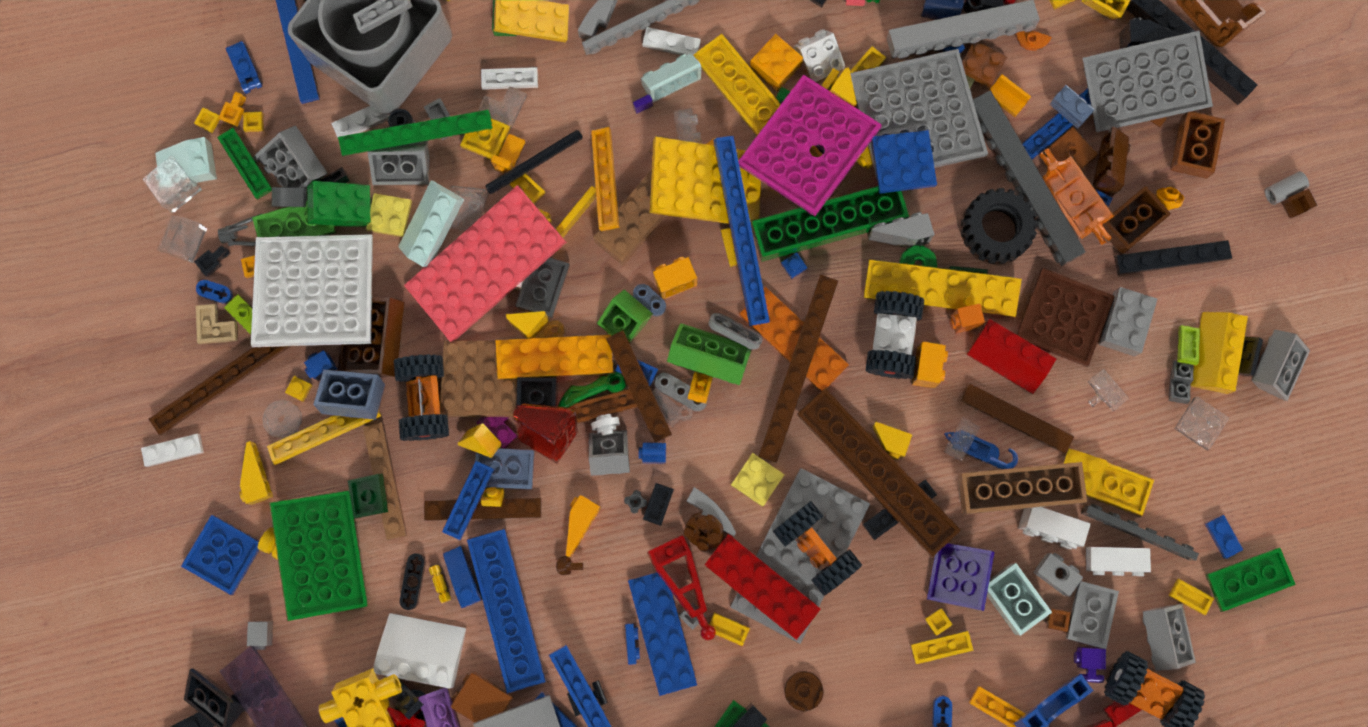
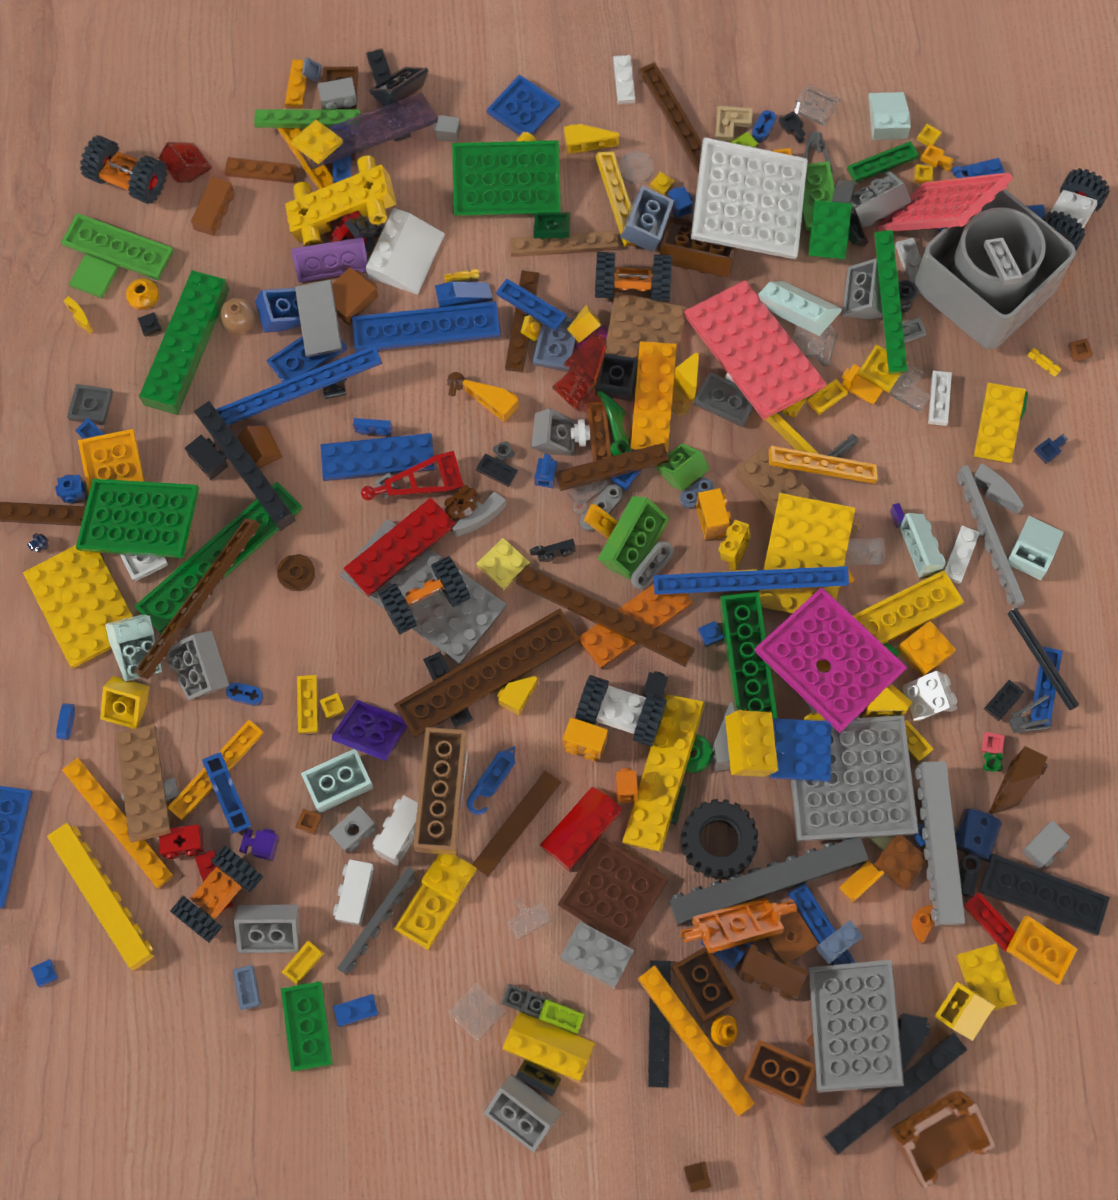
camera: 100 degrees right, 10 degrees down
(171, 185) = (868, 97): clear bracket -> none
(307, 81) = (946, 203): none -> coral plate
(389, 215) = (816, 276): light yellow plate -> none
(409, 566) = (469, 261): black beam -> none
(534, 162) = (850, 406): black axle -> none
(578, 165) = (844, 446): none -> dark grey axle
(711, 253) = (735, 545): none -> yellow plate
(729, 629) = (367, 515): yellow tile -> none
(740, 435) = (549, 552): none -> black hinge
(859, 309) = (655, 684): none -> black brick
(913, 203) = (751, 743): none -> yellow brick
(962, 439) = (504, 757): clear plate -> none
(1092, 615) = (306, 856): light grey plate -> none
(1183, 222) = (696, 1041): none -> light orange plate
(1227, 645) = (246, 987): none -> sand blue plate
(1286, 188) = (717, 1166): light grey pin -> none

